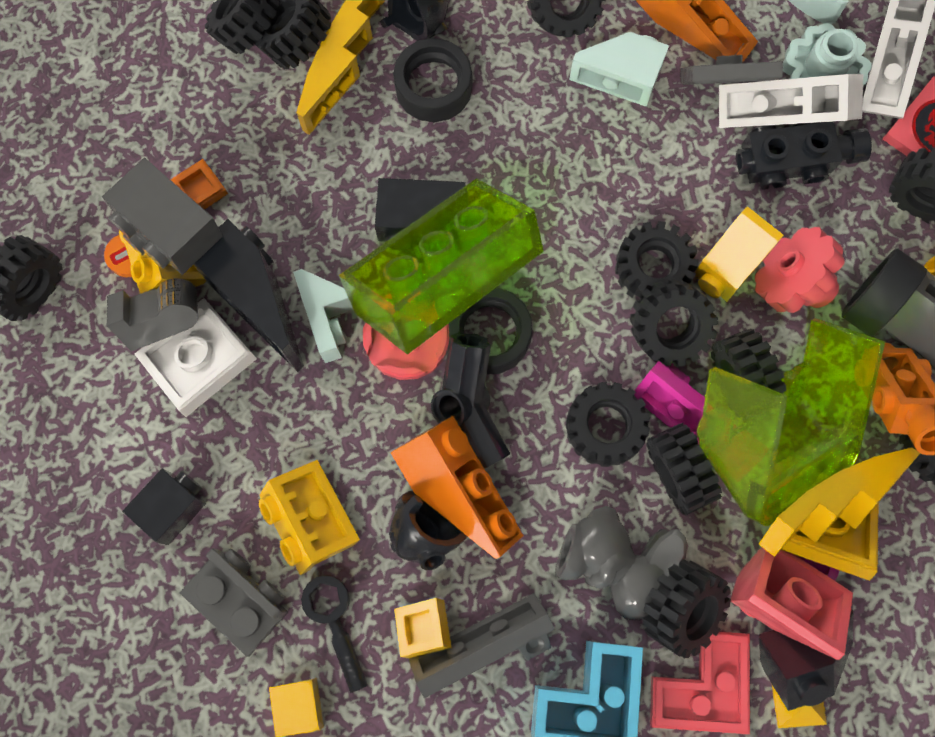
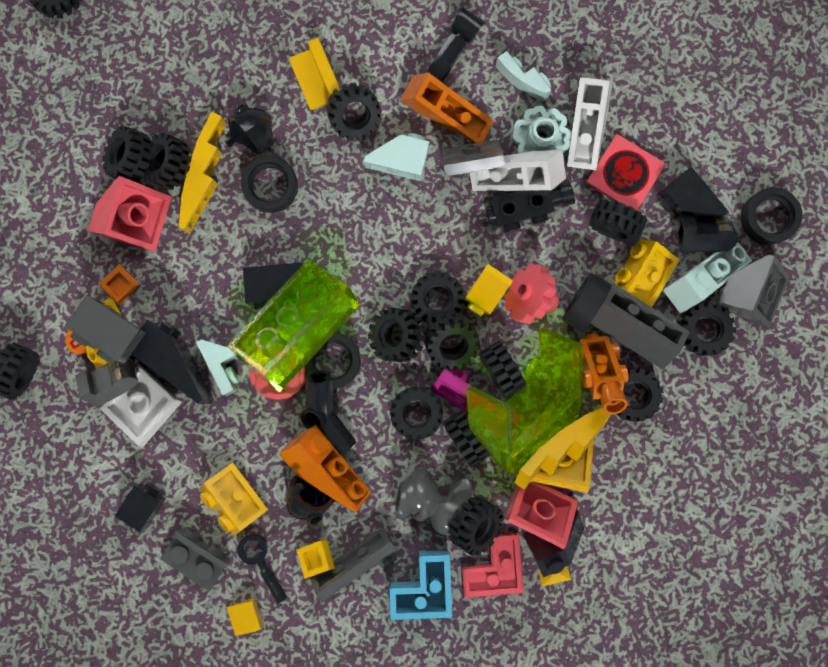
camera: 10 degrees left, 10 degrees up
(231, 92) = (130, 214): none -> coral slope
(606, 318) = (382, 335): none -> black tyre

